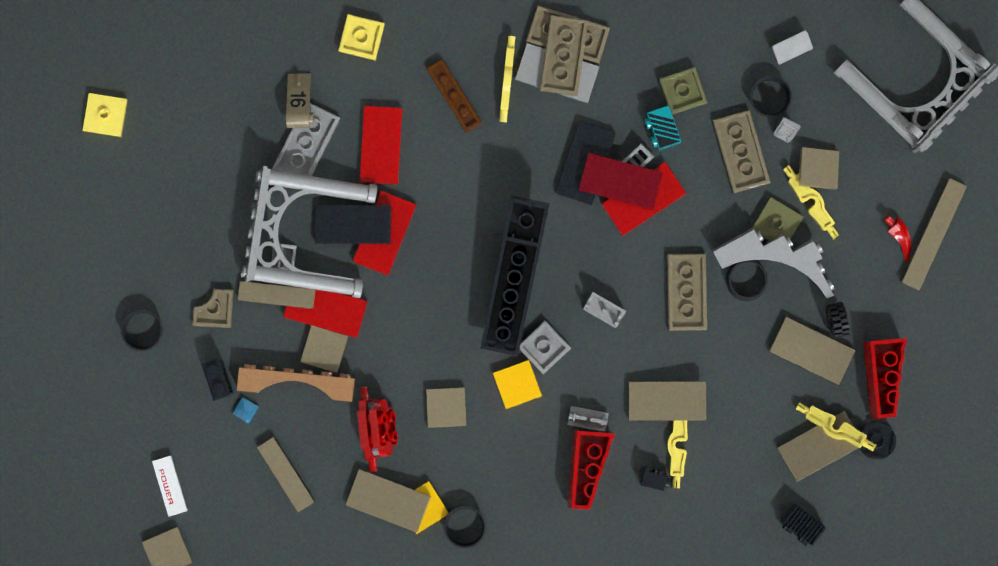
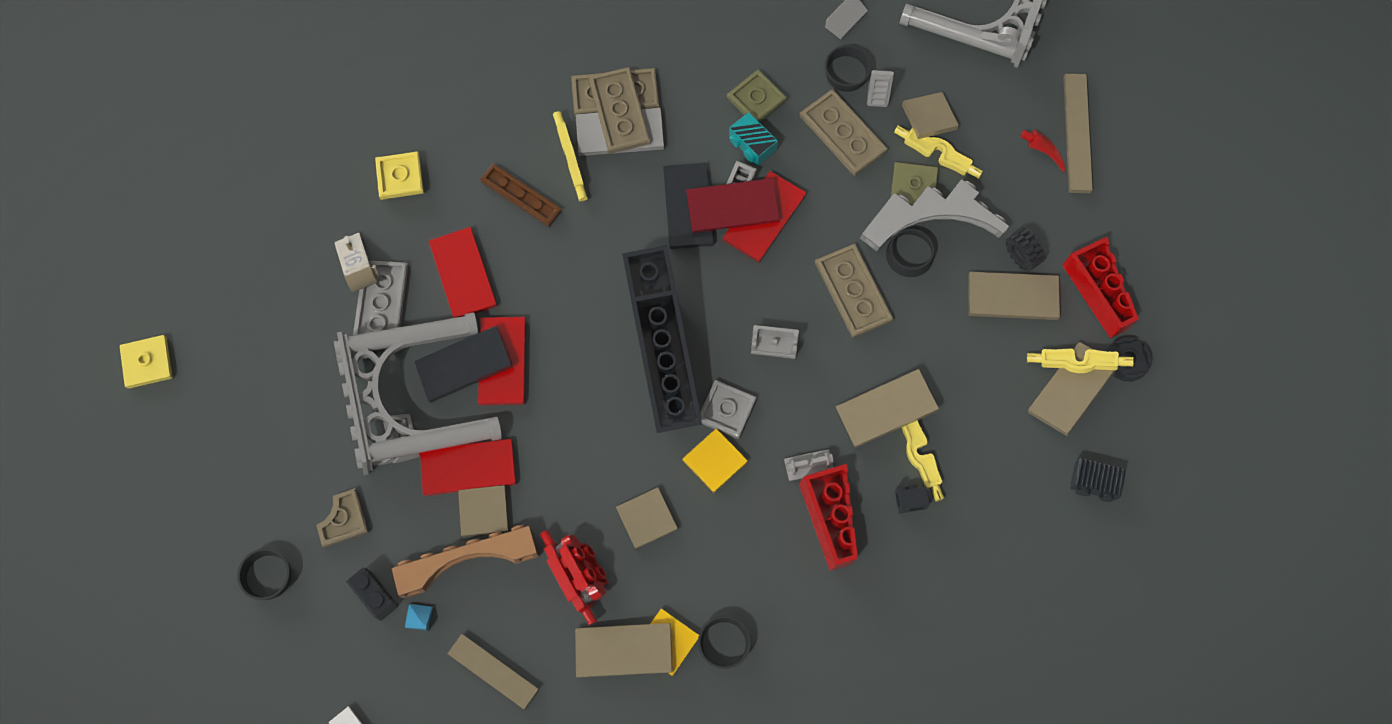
camera: 25 degrees left, 15 degrees down
(276, 295) = (406, 472): dark tan tile -> none

